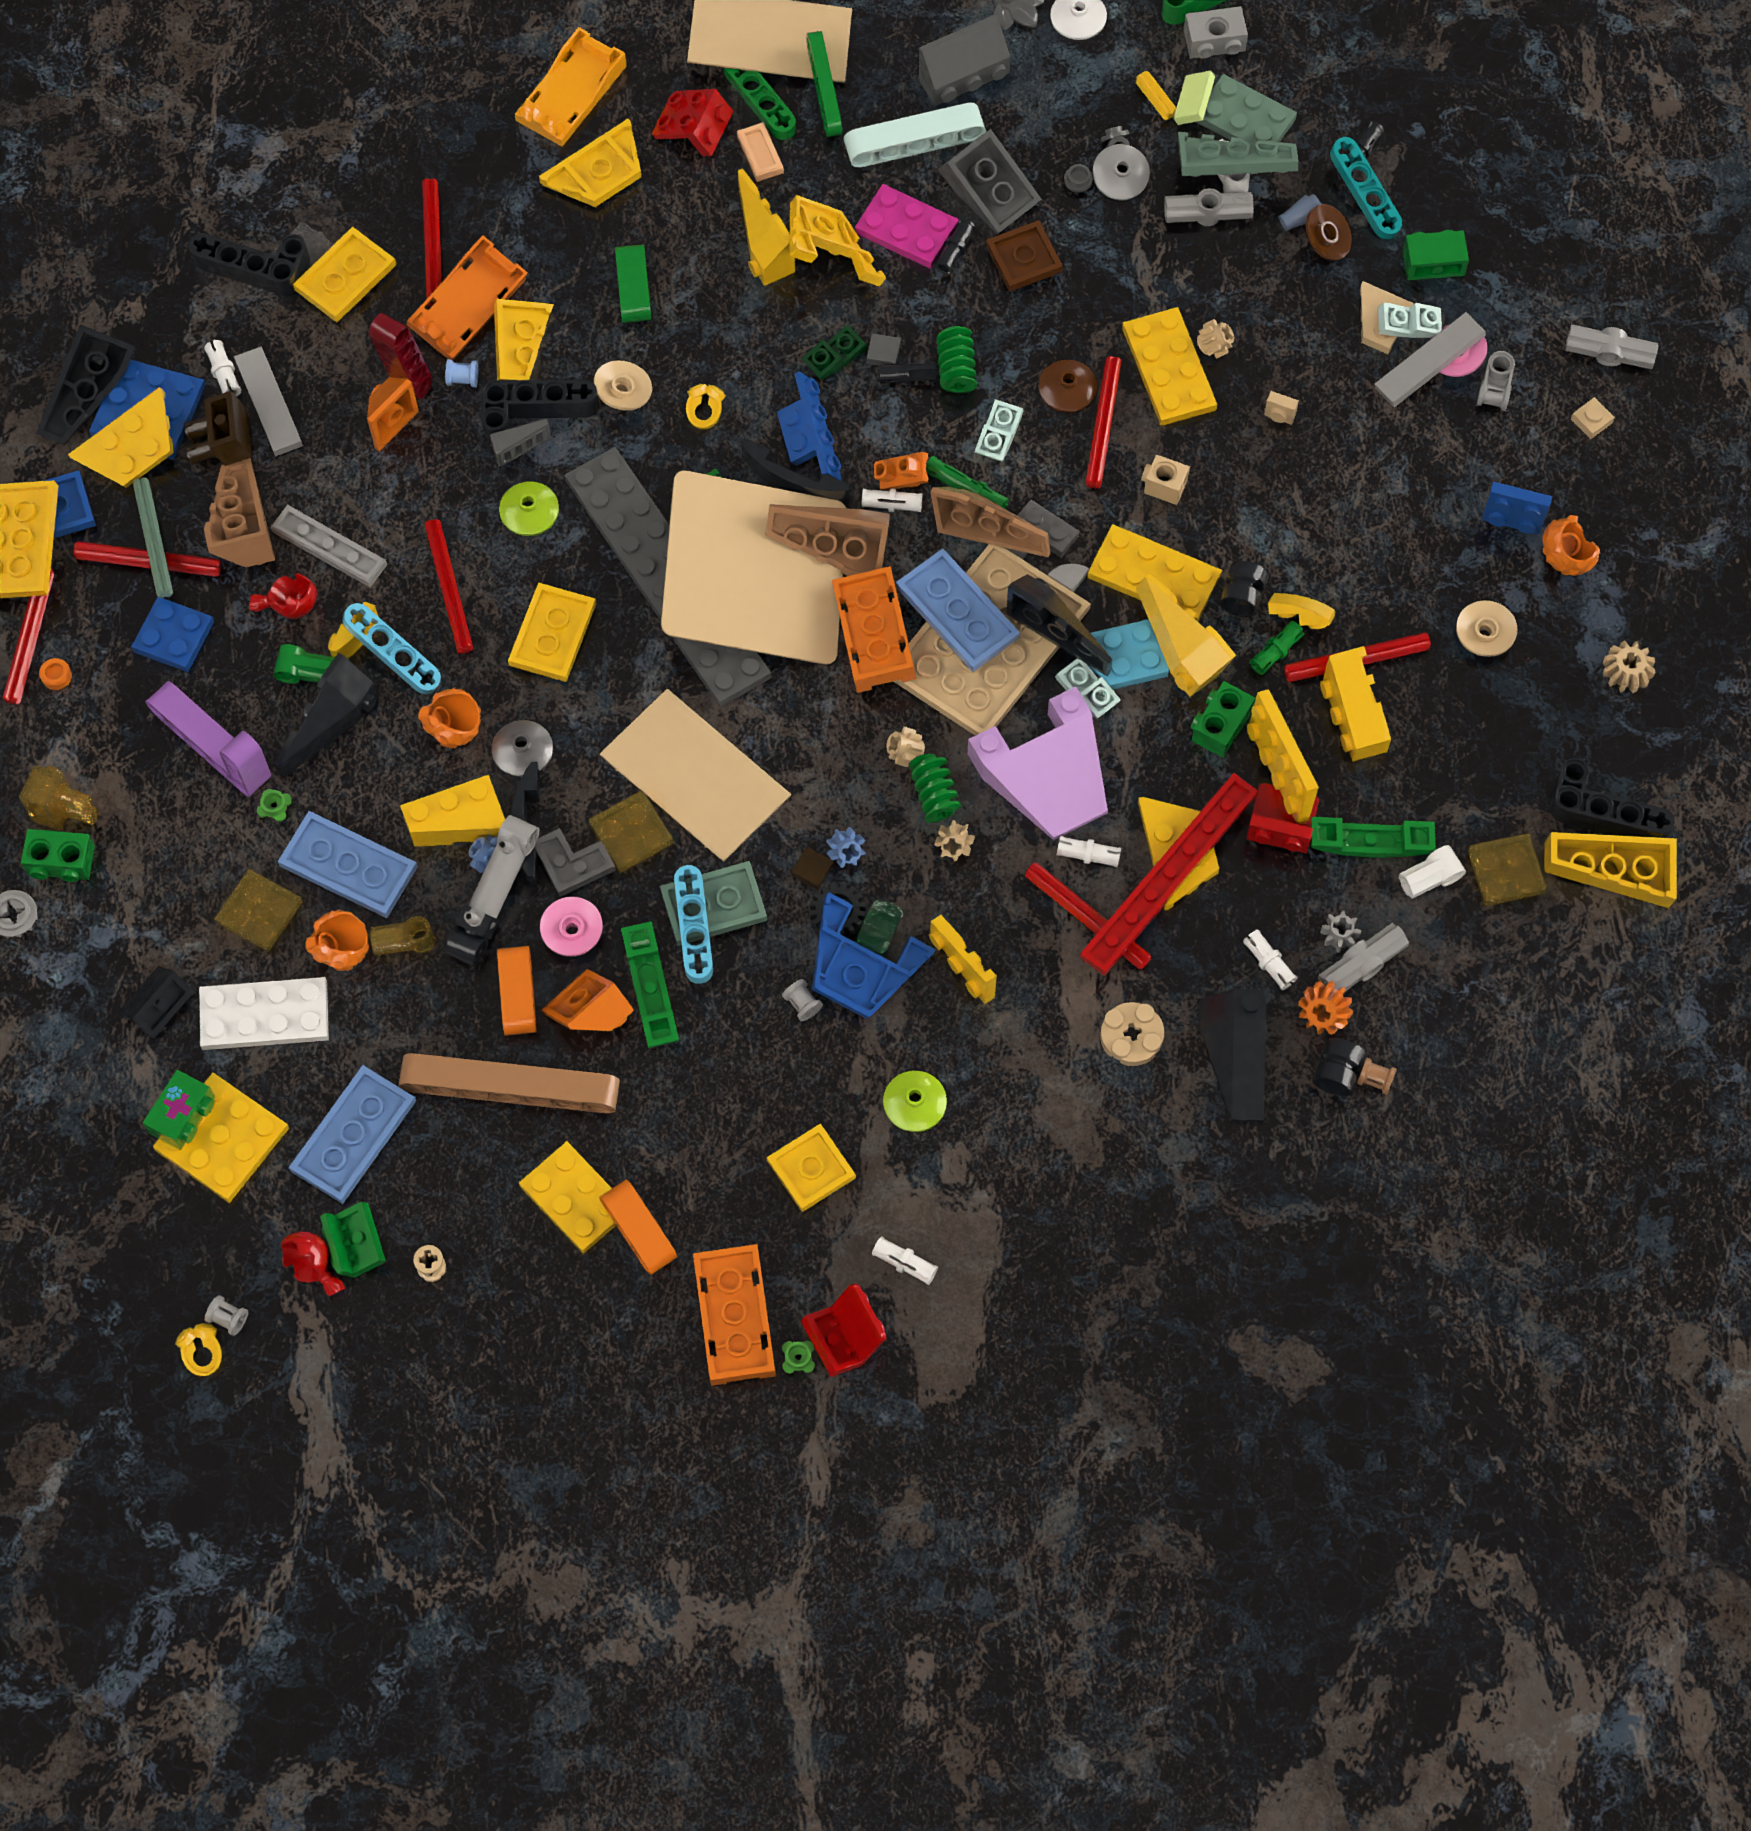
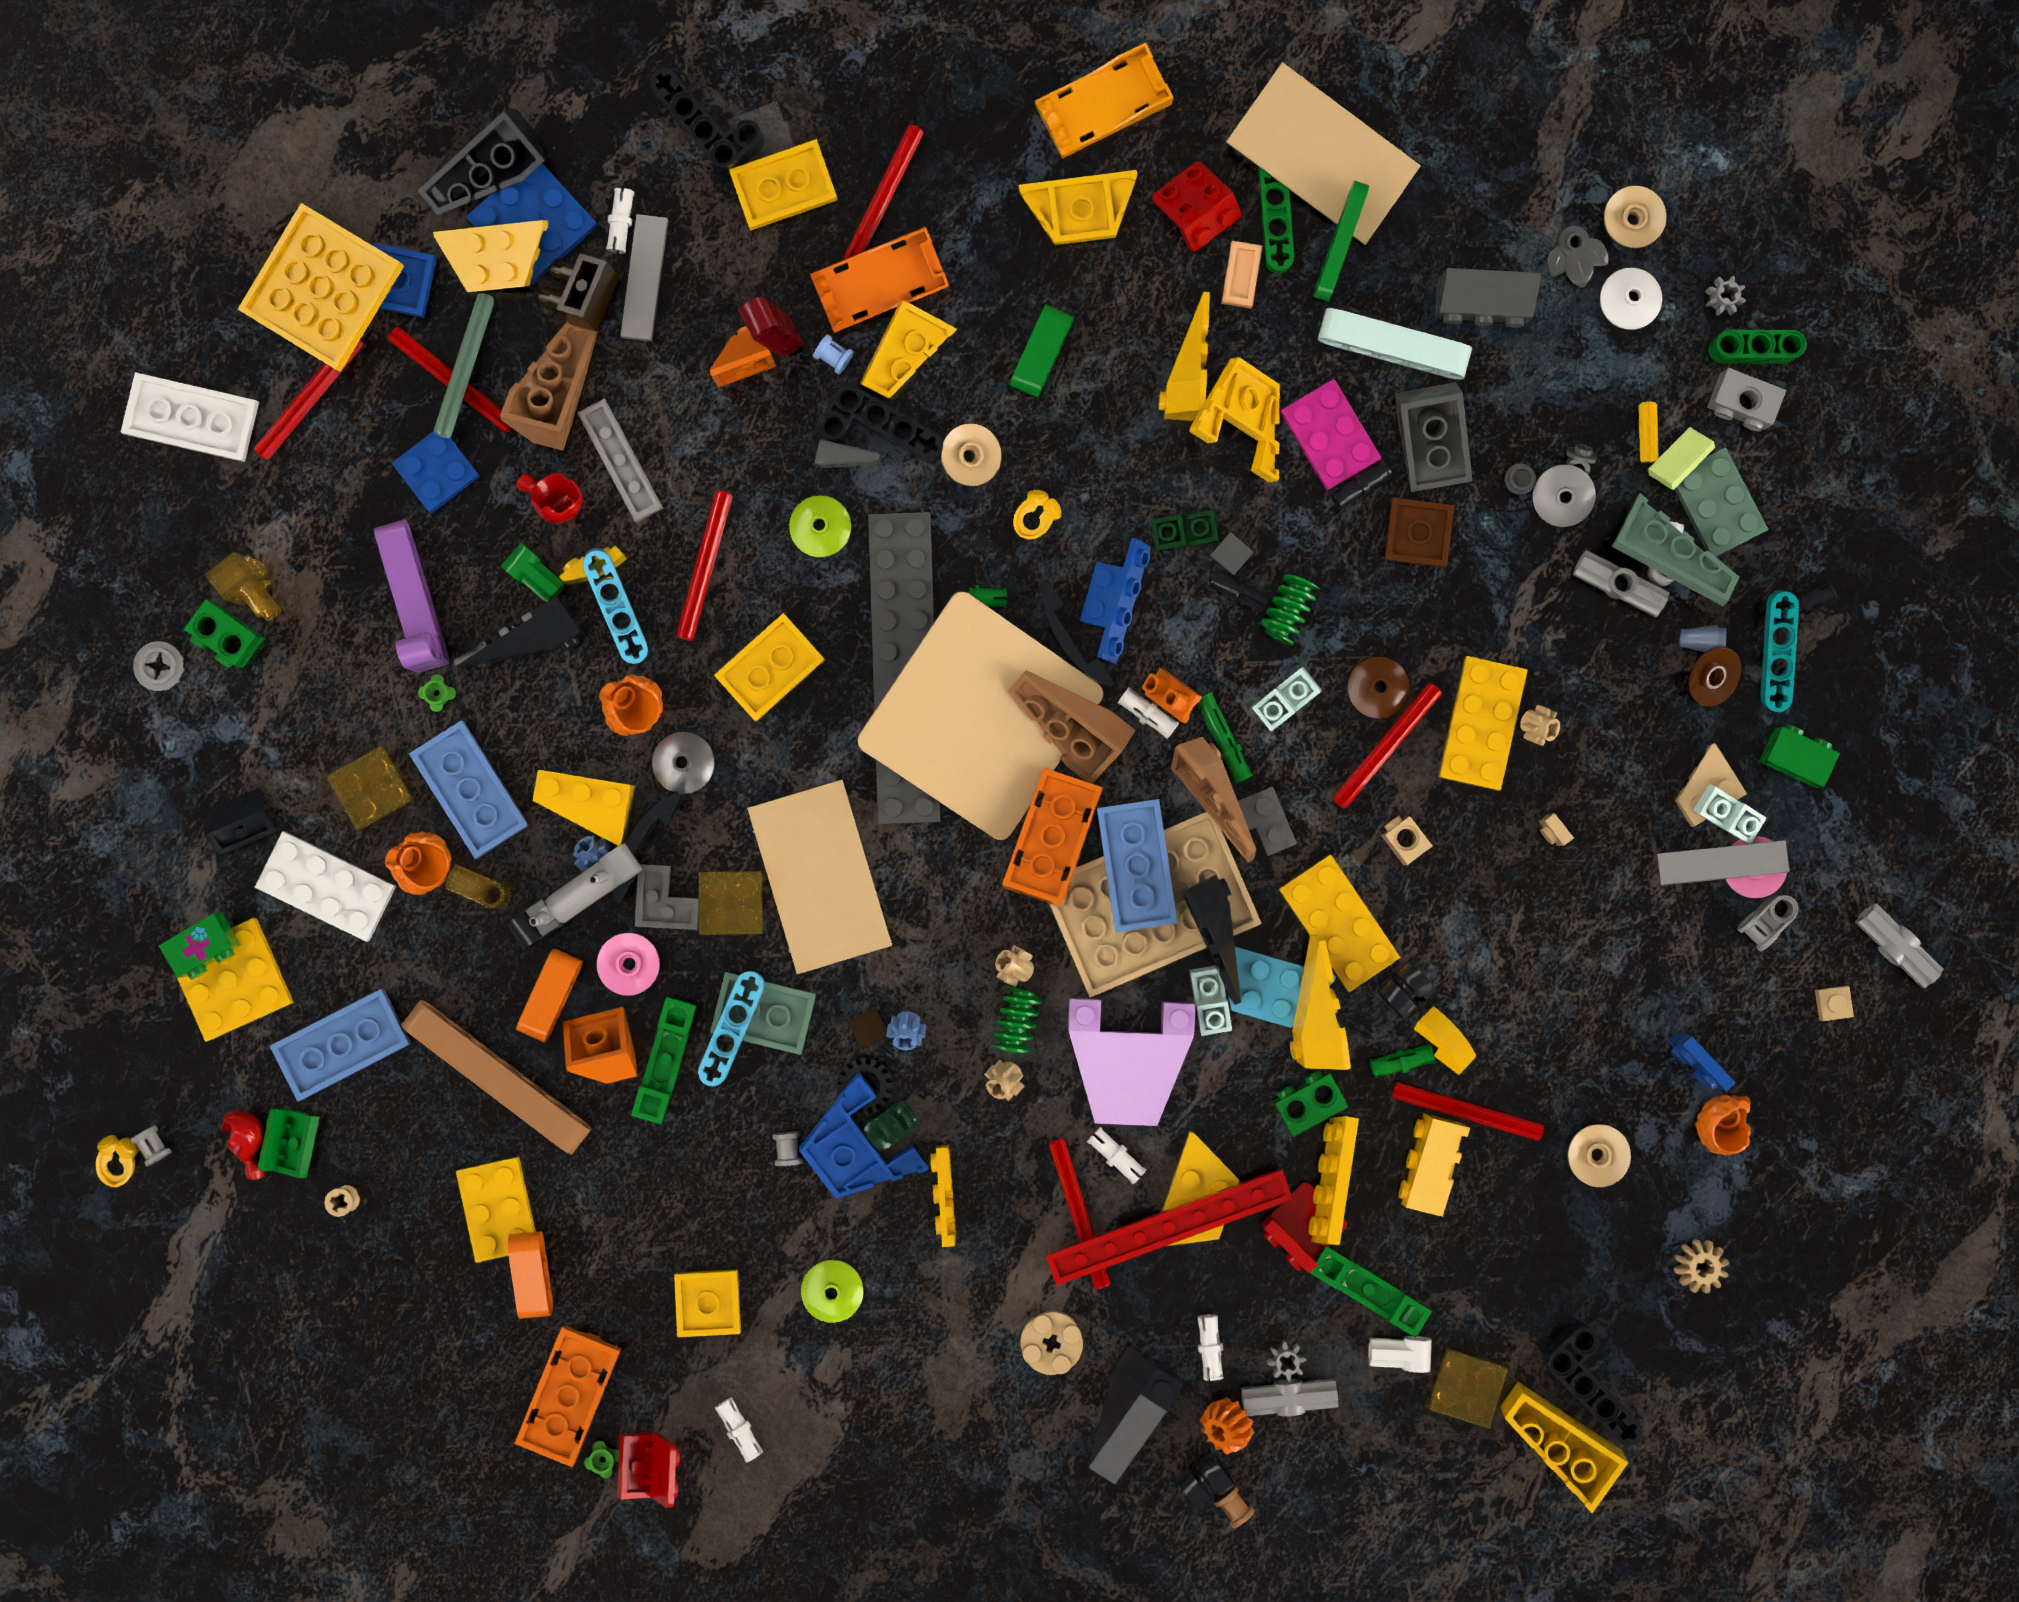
camera: 30 degrees right, 20 degrees up
(55, 674) = (313, 449): orange tile -> none
(1069, 575) = (1260, 881): light grey tile -> none

